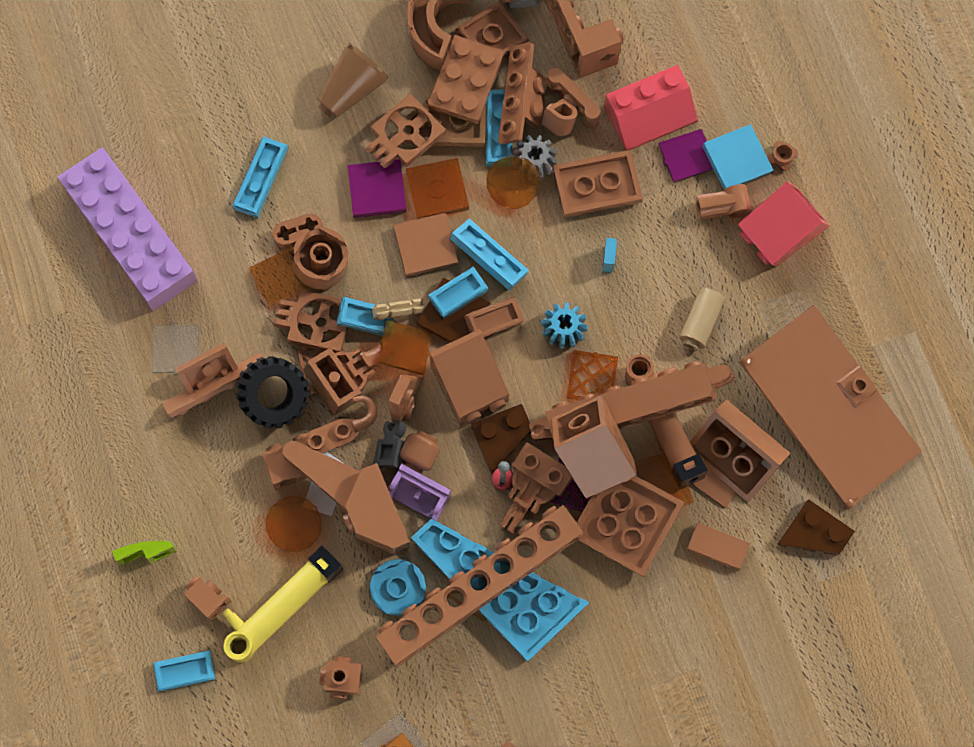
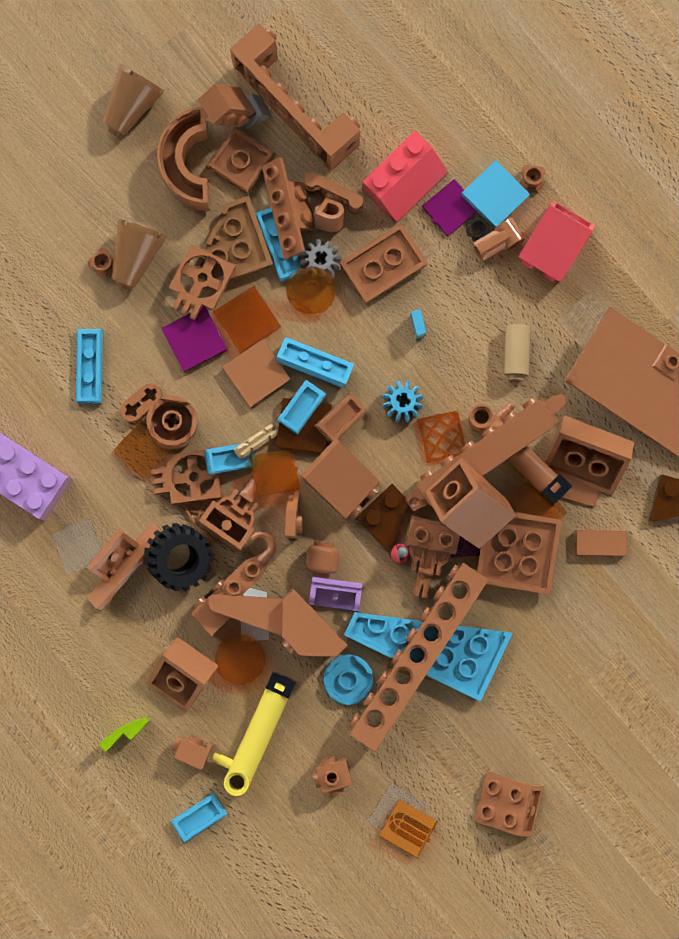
camera: 20 degrees left, 10 degrees up
(227, 514) = (181, 674): none -> nougat slope
(308, 79) = (95, 262): none -> nougat plate
(388, 449) = (296, 564): dark grey plate -> none
(466, 79) = (234, 212): nougat plate -> none
(706, 179) = (477, 223): none -> clear smoke plate

